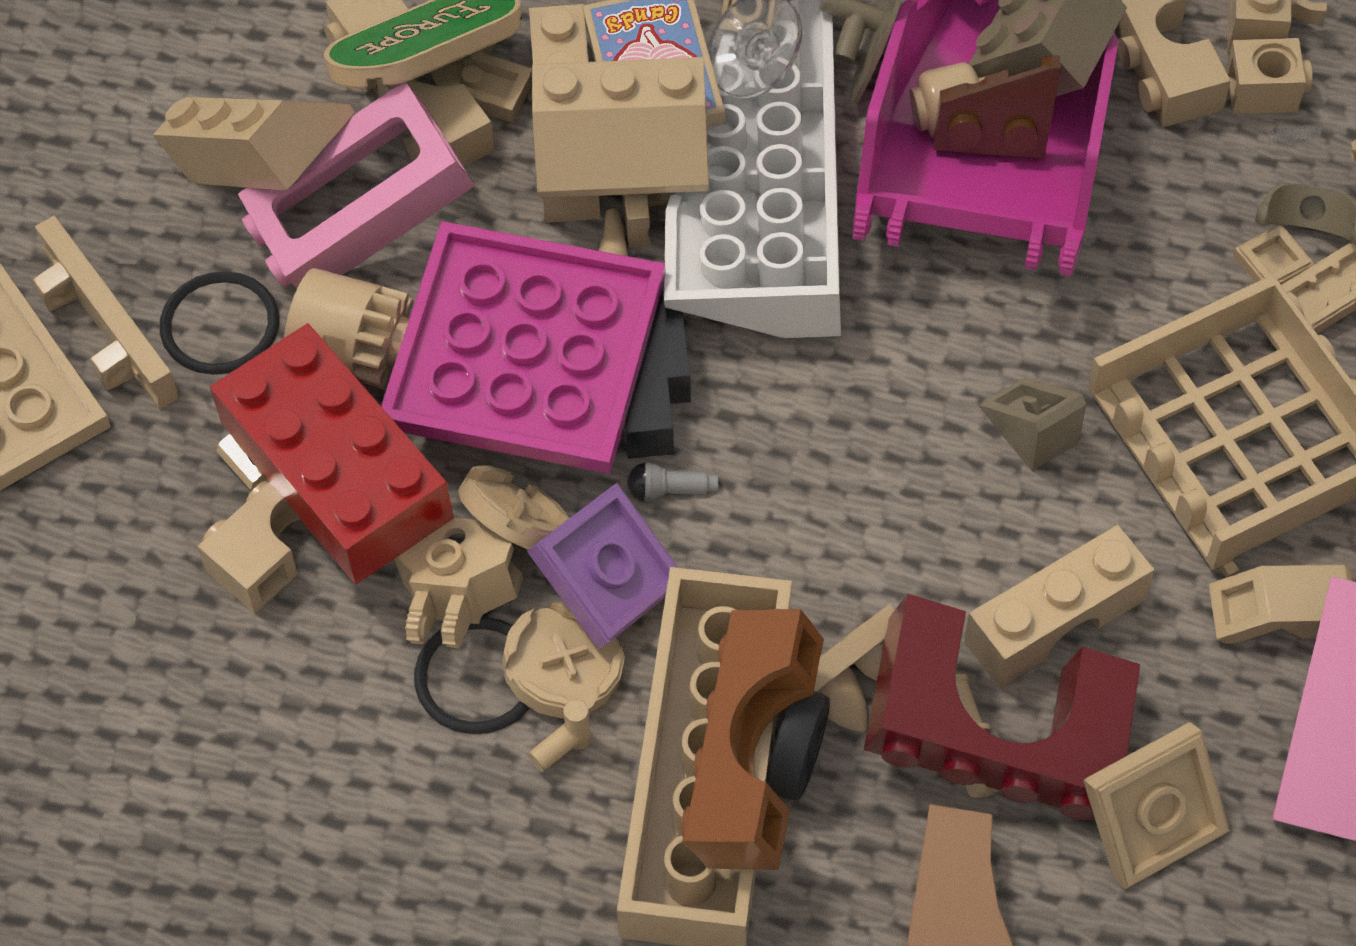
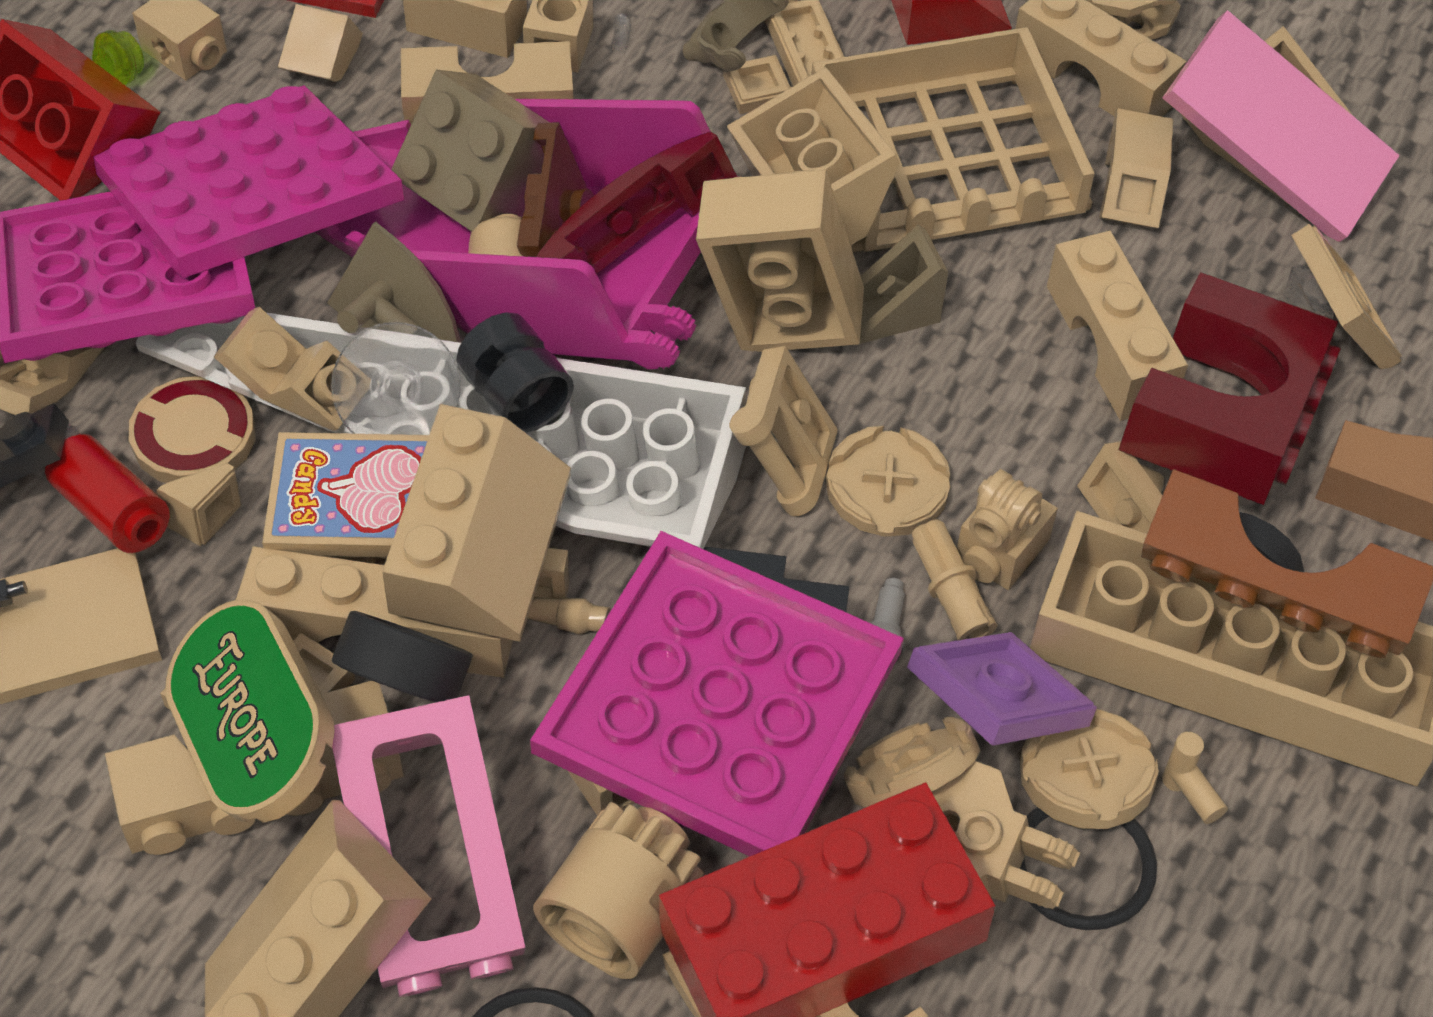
camera: 80 degrees left, 5 degrees down
(468, 121) = (401, 658): none -> black tyre
(725, 522) = (952, 581): none -> tan axle
(779, 541) = (1005, 529): none -> tan brick
(781, 119) = (514, 371): none -> black wheel
(826, 458) = (887, 481): none -> tan tile
(843, 354) = (787, 406): none -> tan plate
(988, 288) = (781, 260): none -> tan brick
(992, 153) = (640, 202): none -> dark red slope
(1129, 294) = (818, 129): none -> tan slope

